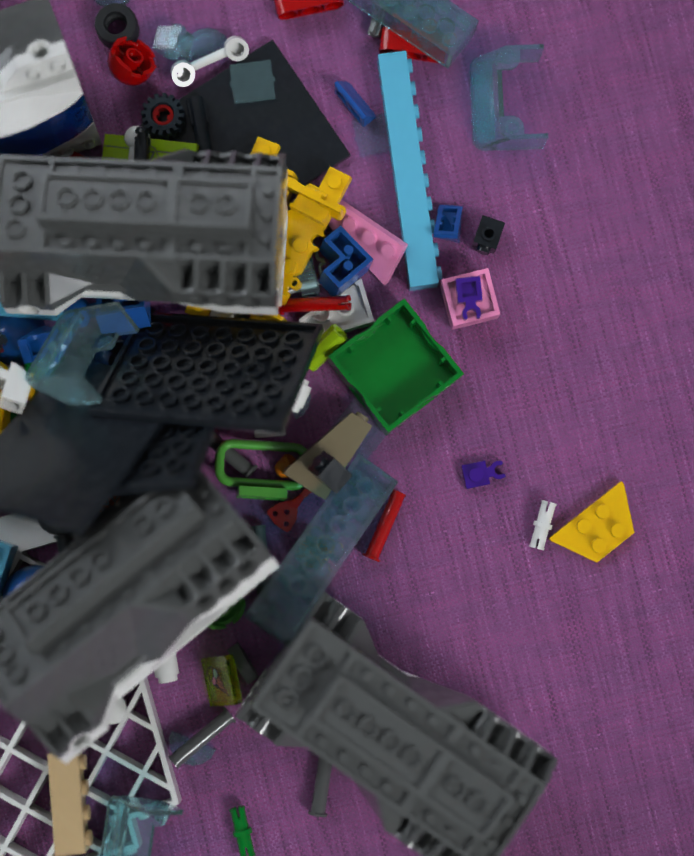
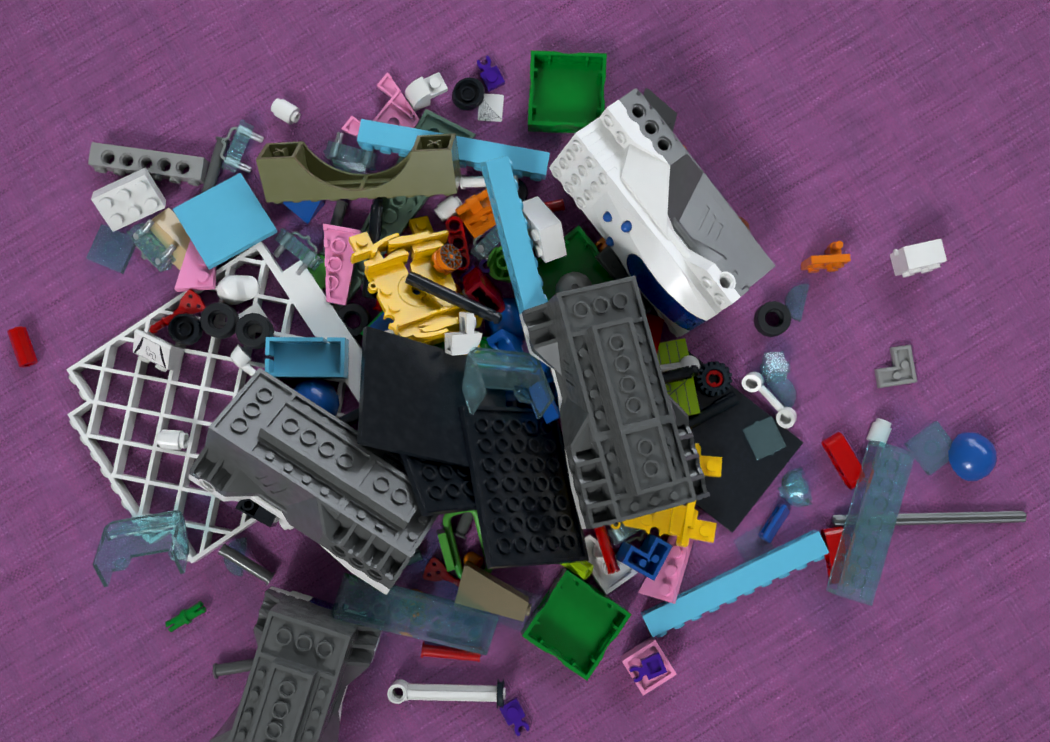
camera: 75 degrees right, 0 degrees up
(20, 781) = (172, 439): none -> white brick
(69, 805) = (160, 484): tan brick -> none
(131, 61) = (748, 340): red cylinder -> none
(138, 698) = (257, 512): none -> black slope
(221, 680) = (293, 565): clear neon green tile -> none
(243, 663) = (311, 577): dark grey beam -> none
(321, 65) = (795, 488): none -> clear light blue cylinder
(329, 472) = (475, 602): black brick -> none
(429, 540) = (448, 692): none -> white piece
(448, 223) = (703, 628): blue slope -> none
(487, 235) = (703, 663): black brick -> none
(489, 125) = (811, 629): clear light blue windscreen -> none

